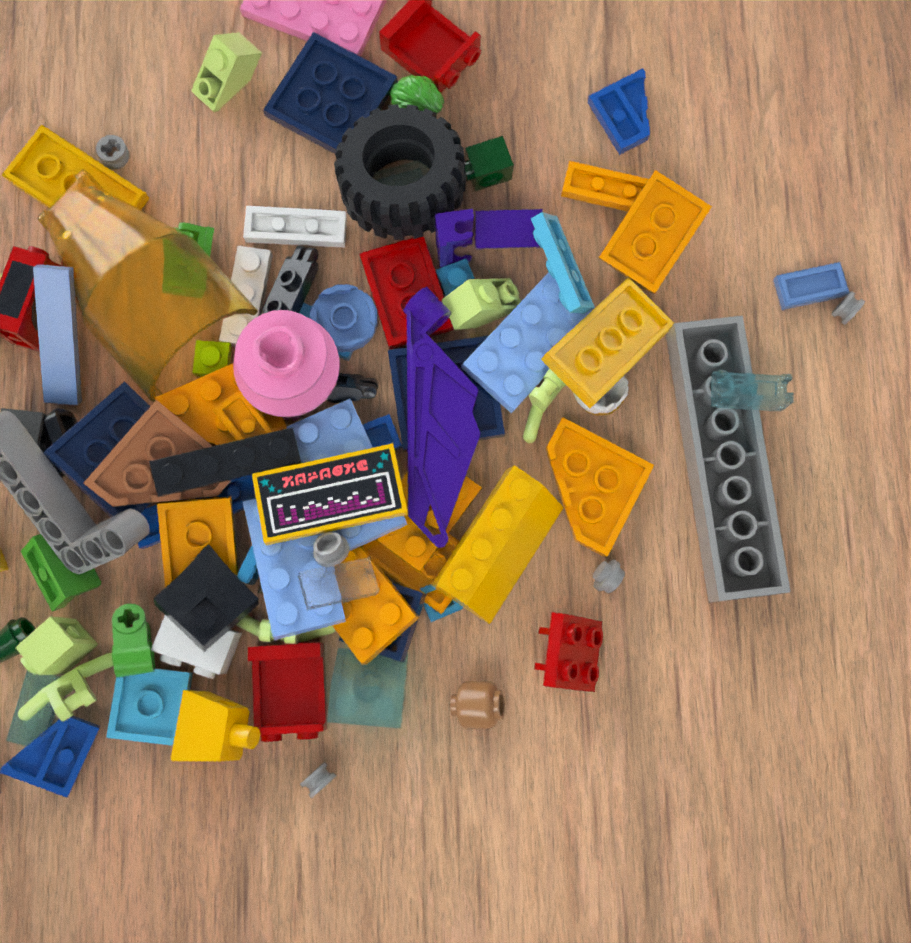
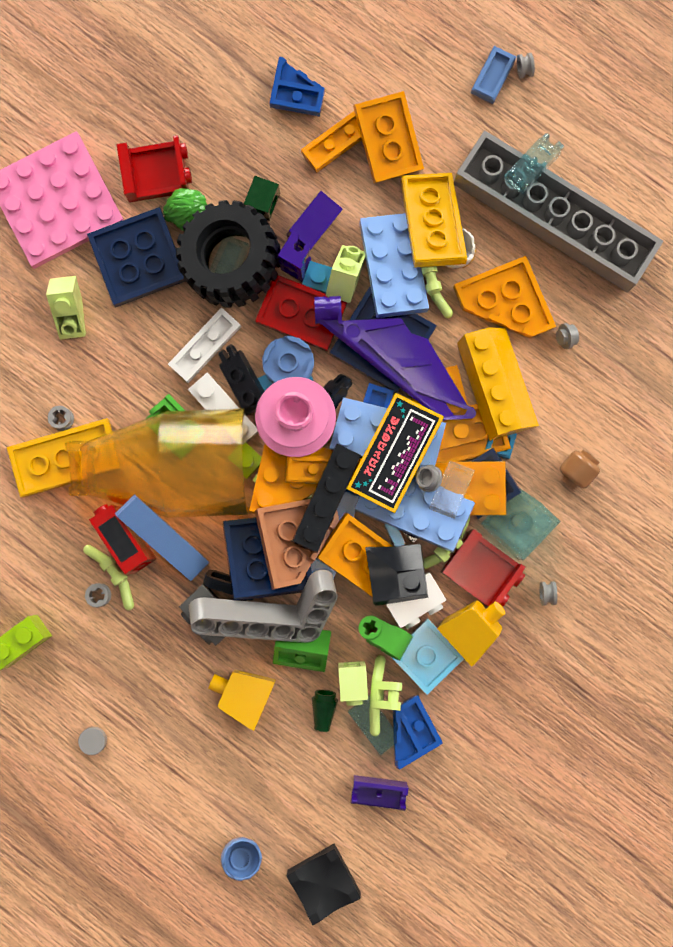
camera: 45 degrees left, 5 degrees up
(561, 263) = (365, 207): medium azure plate -> none
(571, 652) = (595, 391): red plate -> none

